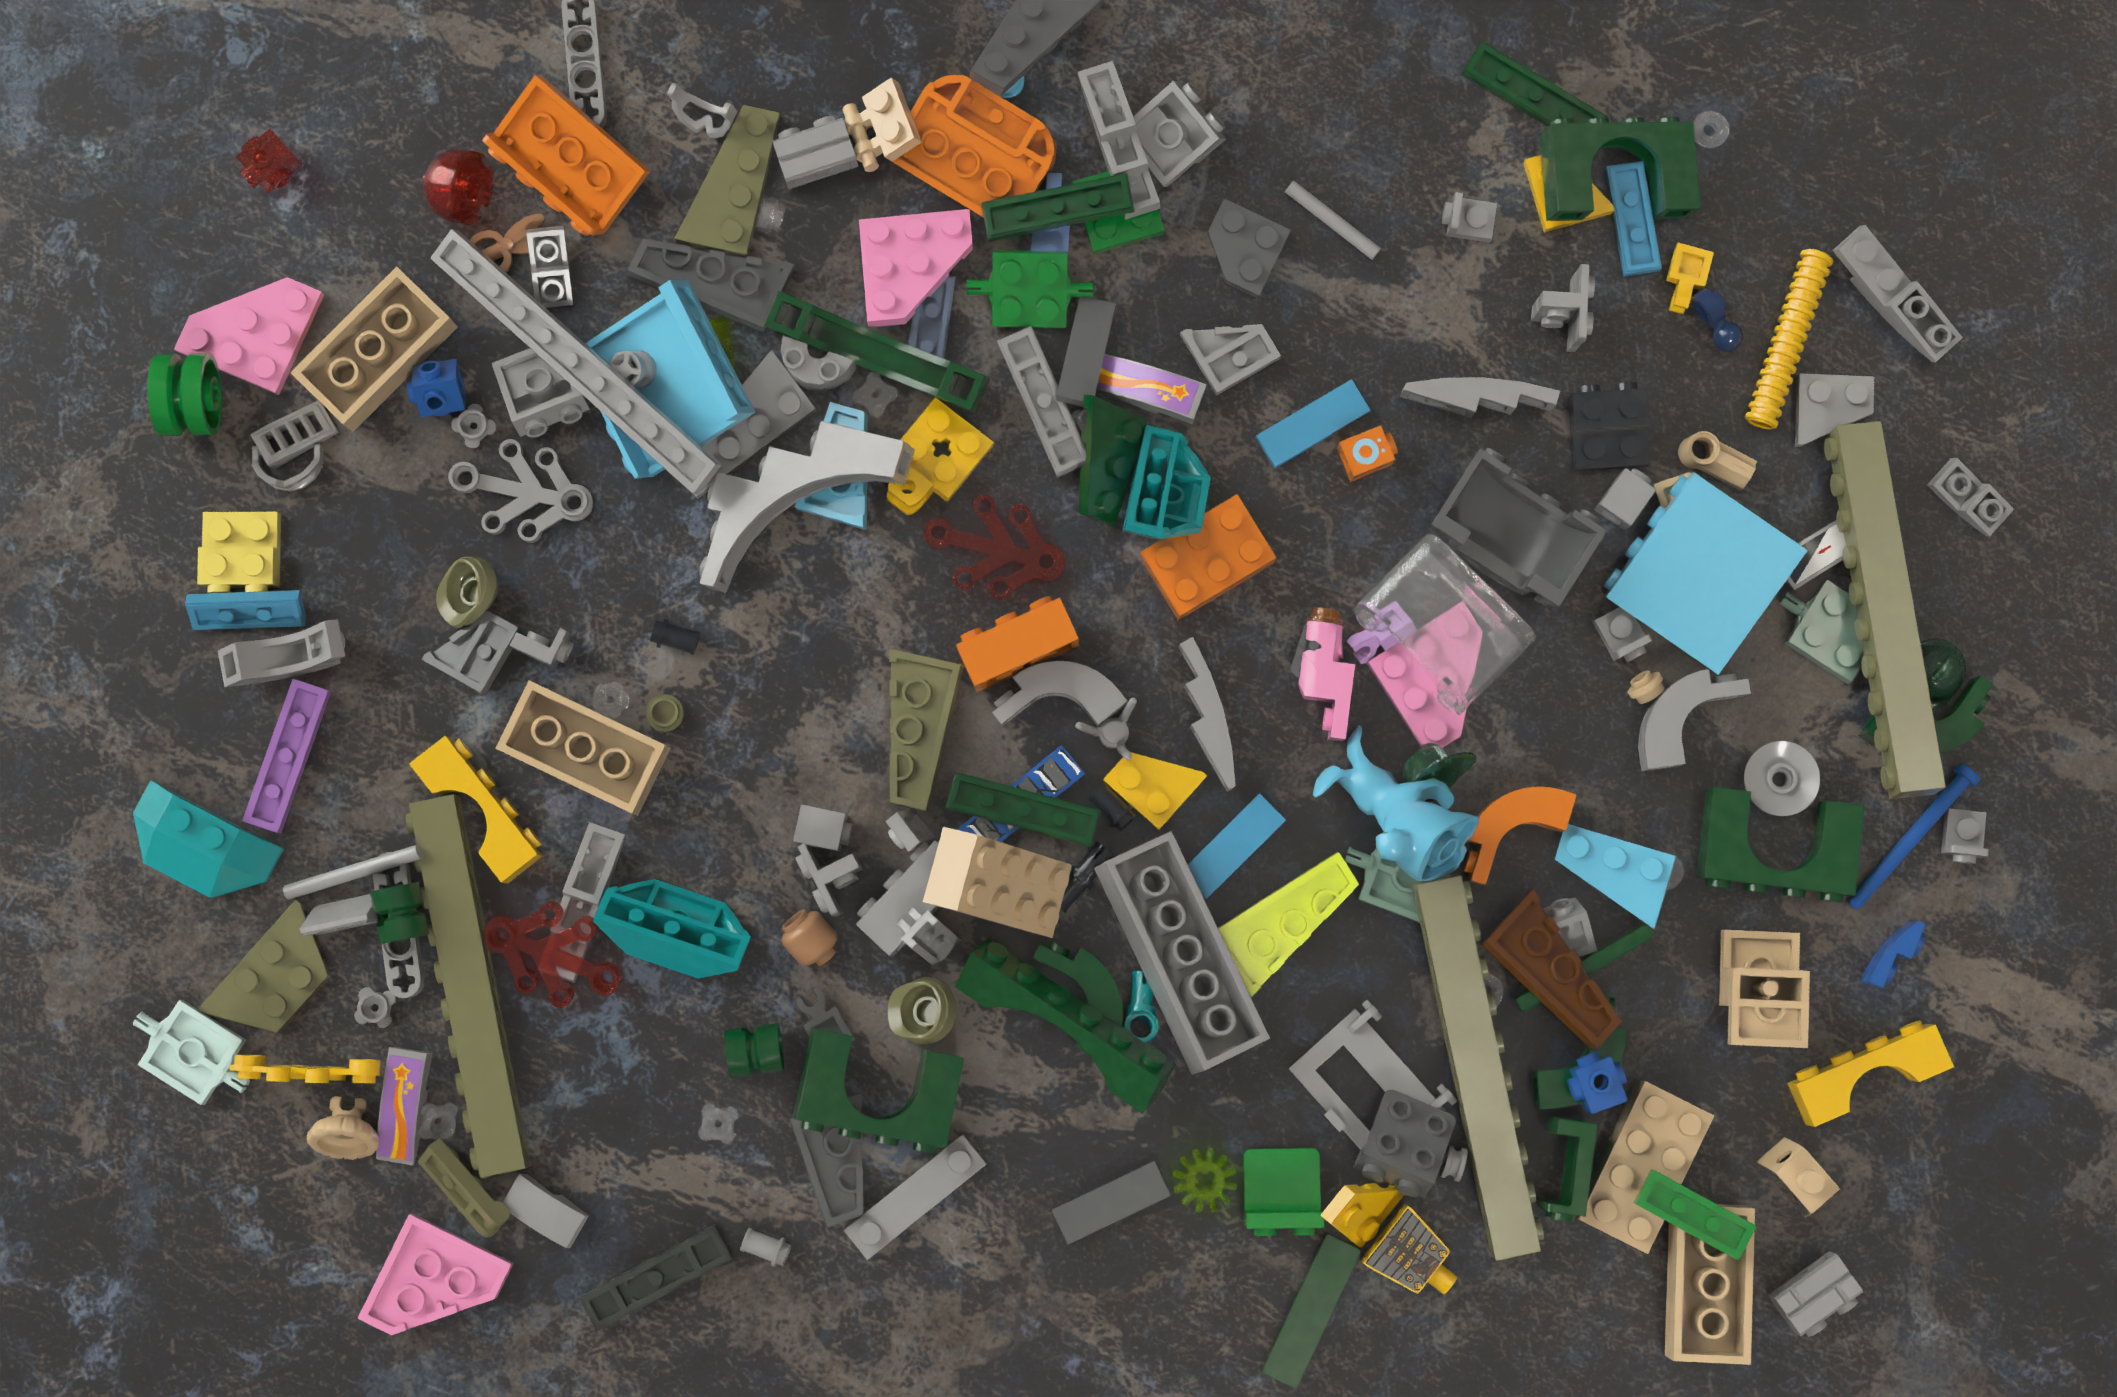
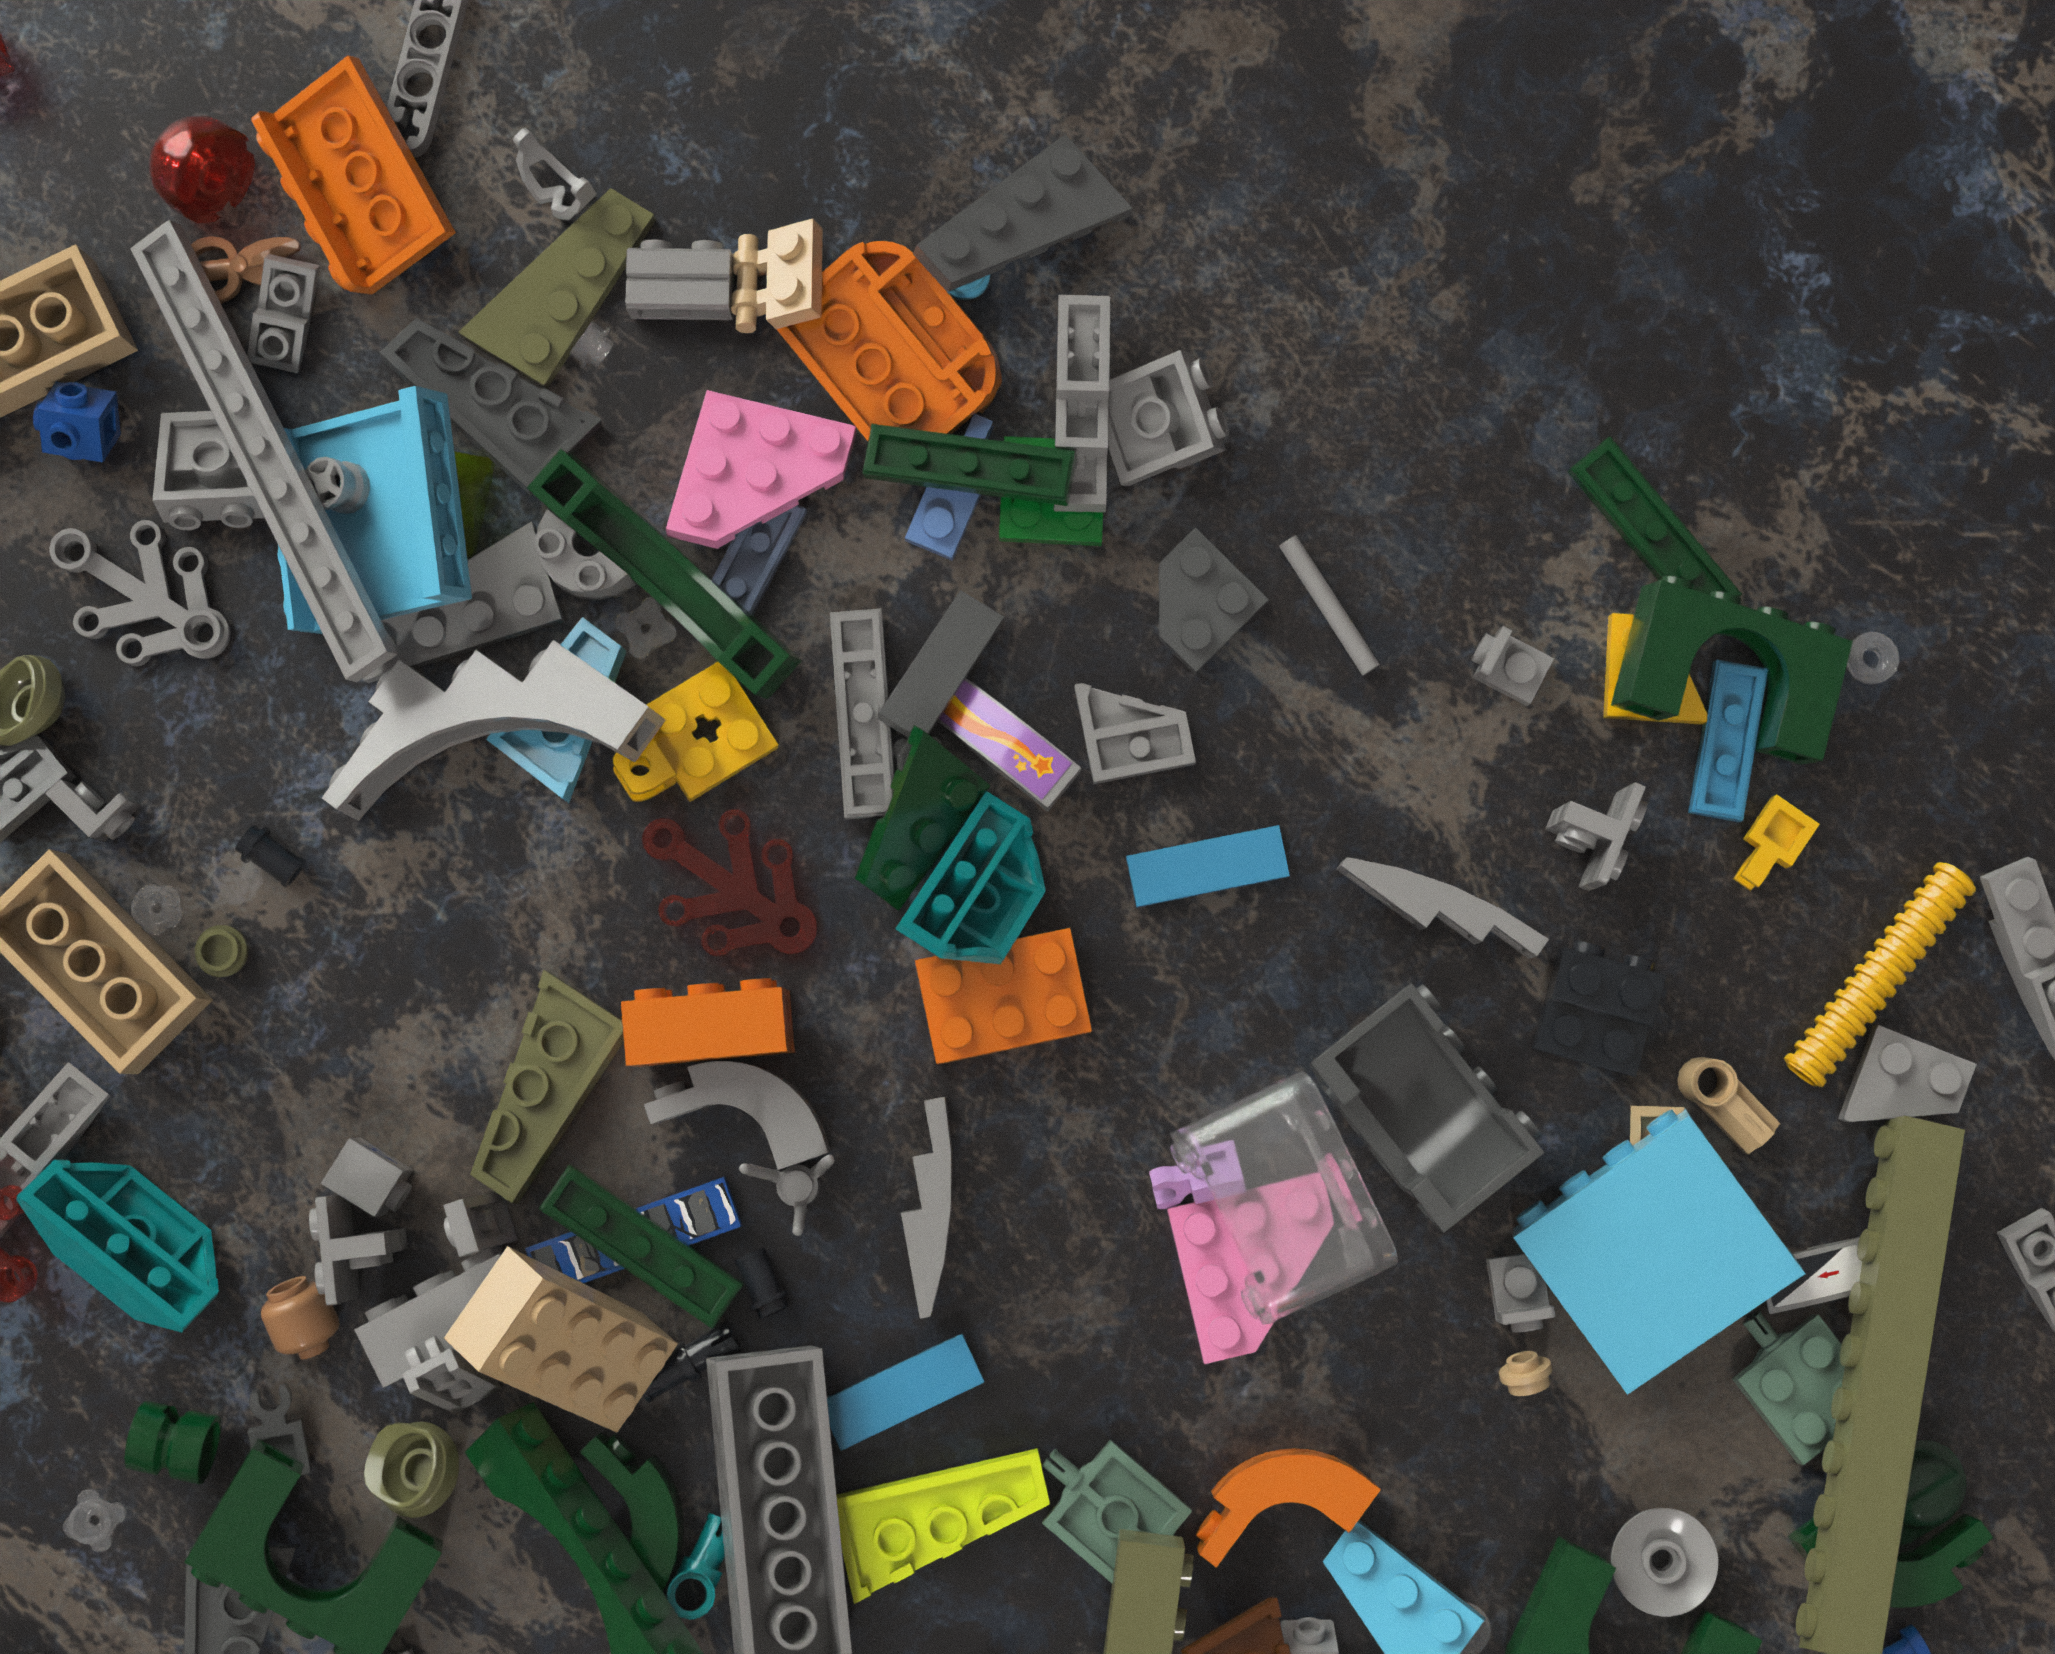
camera: 20 degrees right, 0 degrees up
(463, 425) = (96, 481): light grey plate -> none
(1029, 288) = (896, 558): green plate -> none
(1153, 786) = (826, 1274): yellow wing -> none
(1320, 671) = (1099, 1199): bright pink plate -> none
(1367, 453) = (1265, 930): orange brick -> none
(1417, 834) = (1145, 1474): medium azure animal -> none
(1434, 762) = (1198, 1389): clear green piece -> none
(1625, 498) = (1587, 1111): light grey brick -> none
(1662, 725) = (1538, 1422): light grey arch -> none
(1710, 309) = (1789, 896): dark blue plate -> none

